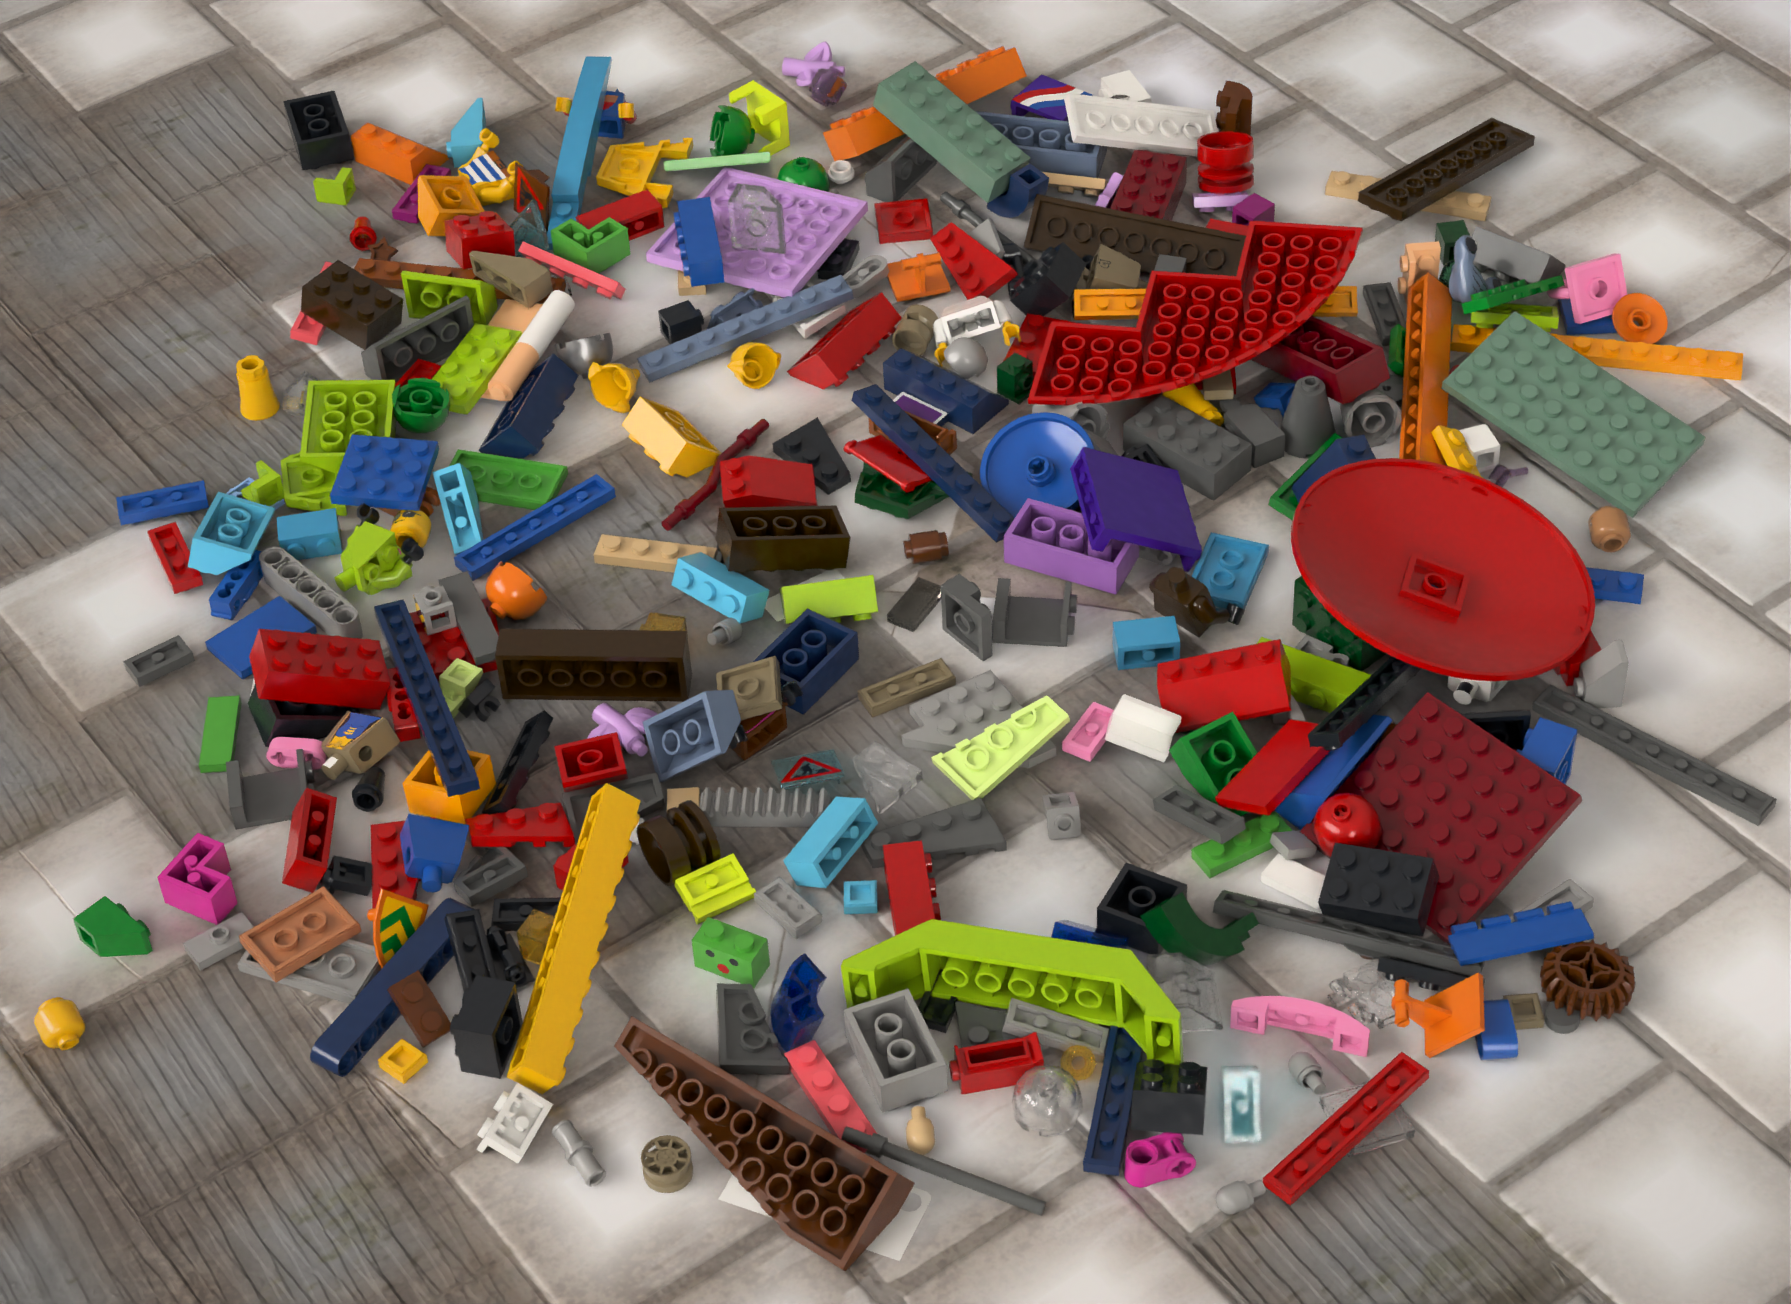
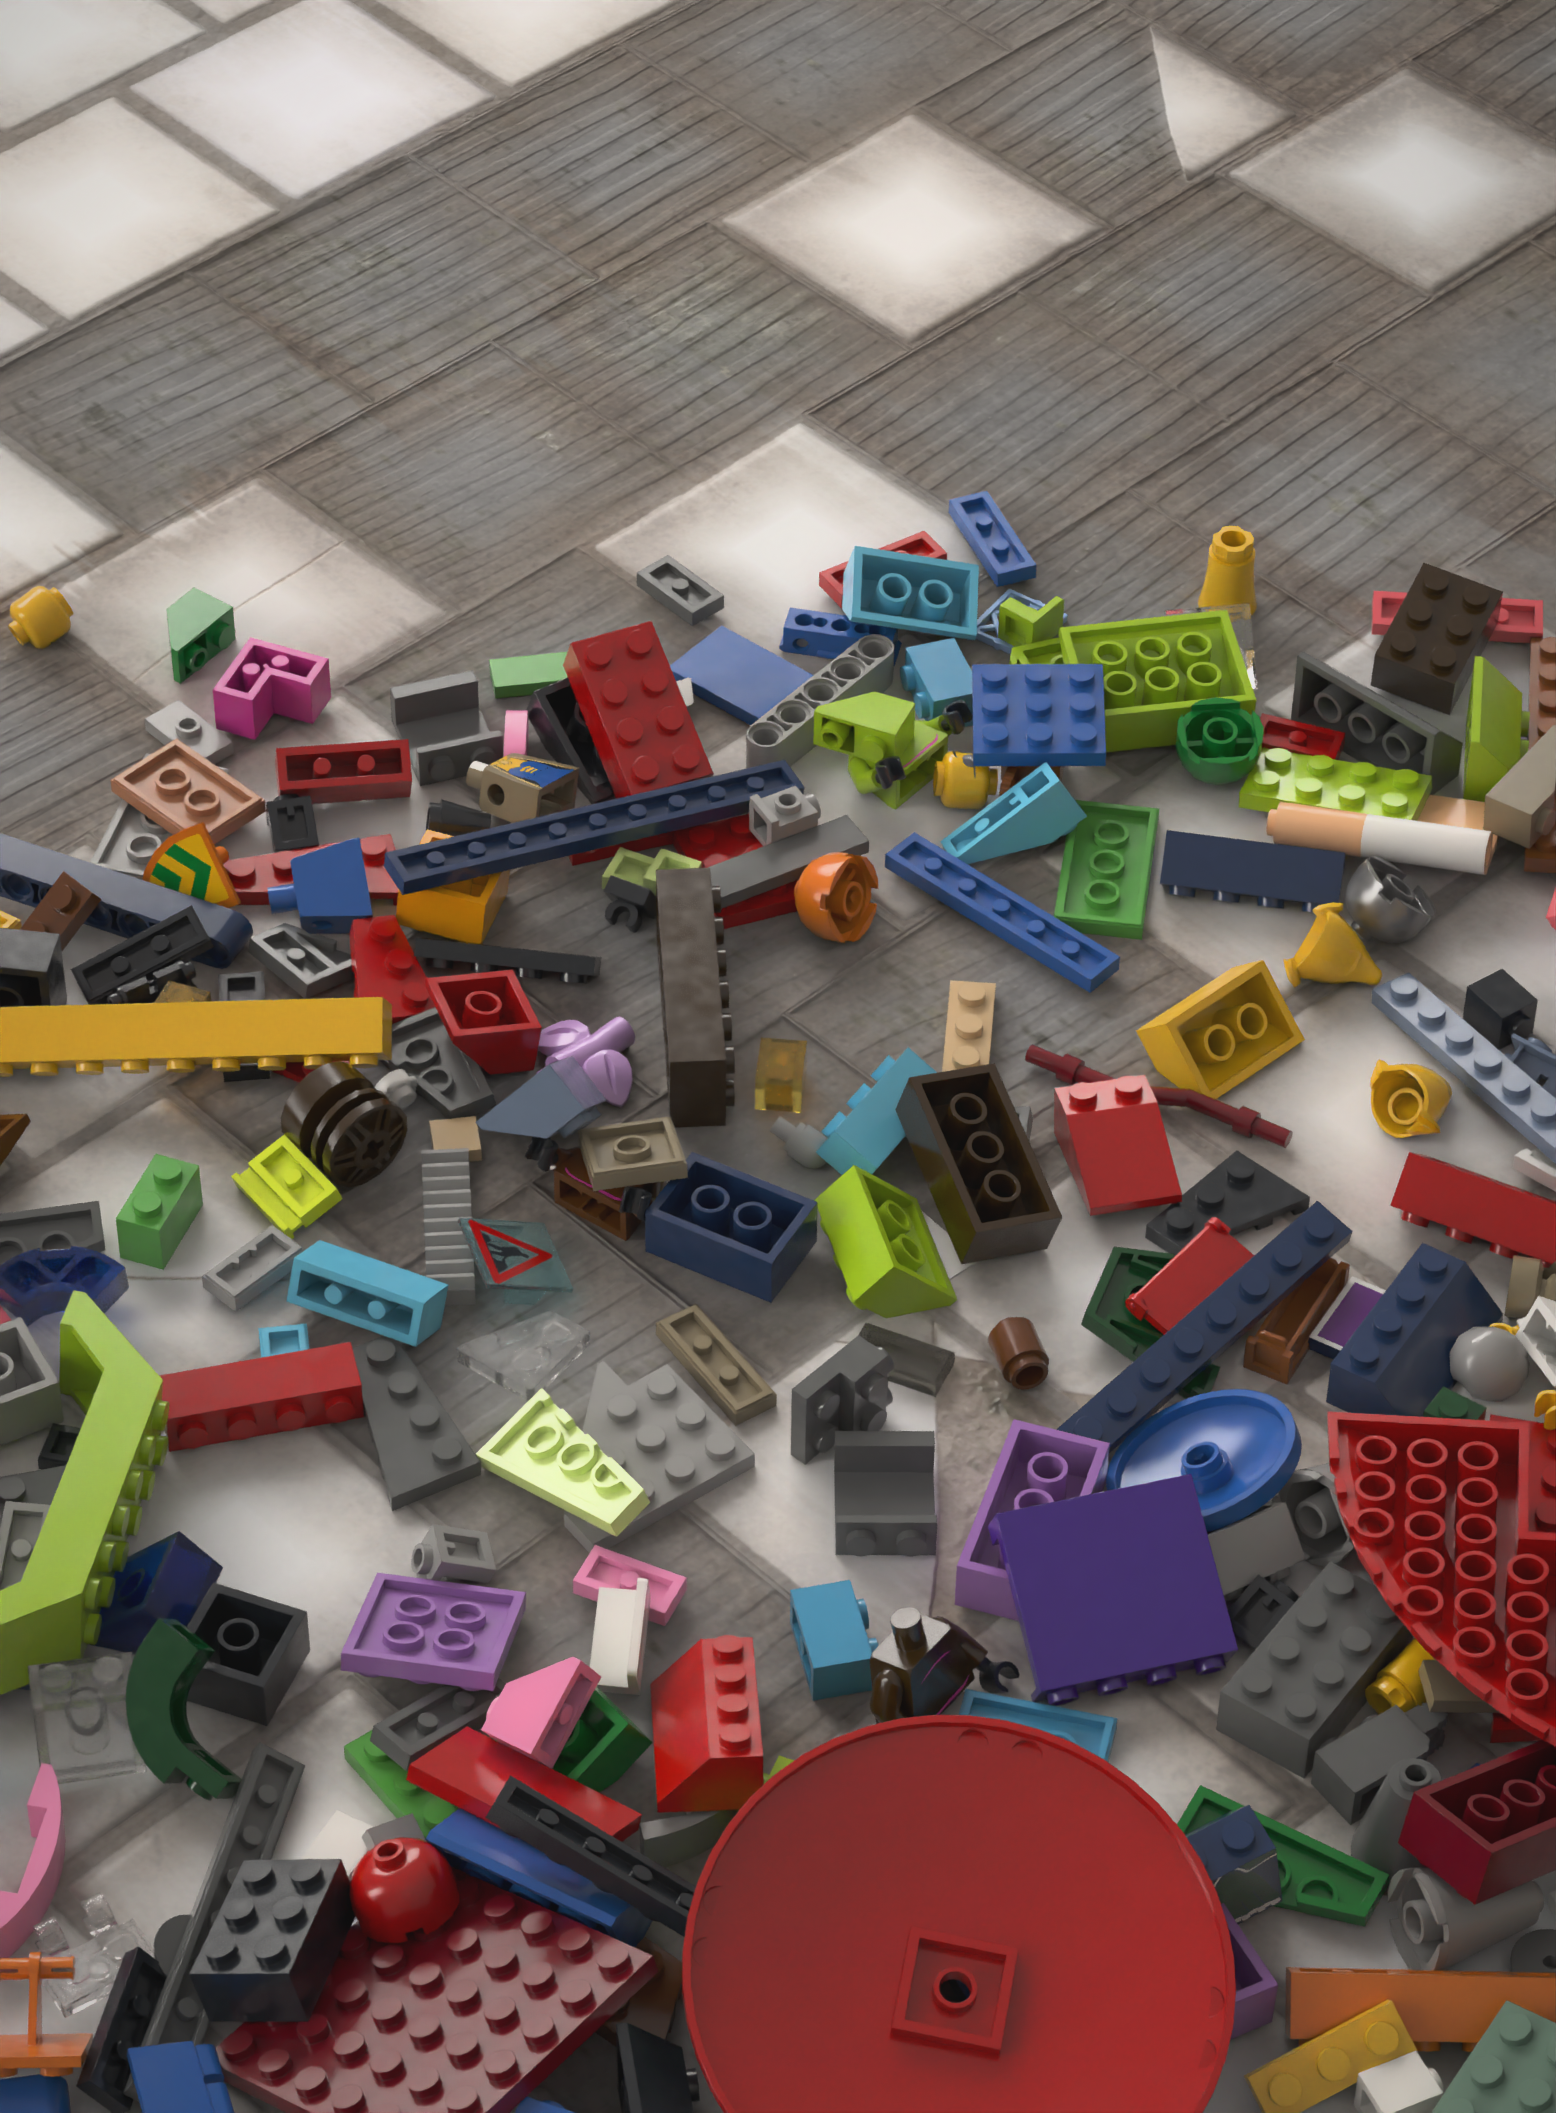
camera: 80 degrees right, 0 degrees up
(1131, 815) = (433, 1632): none -> medium lavender plate
(1219, 750) = (541, 1709): none -> bright pink slope

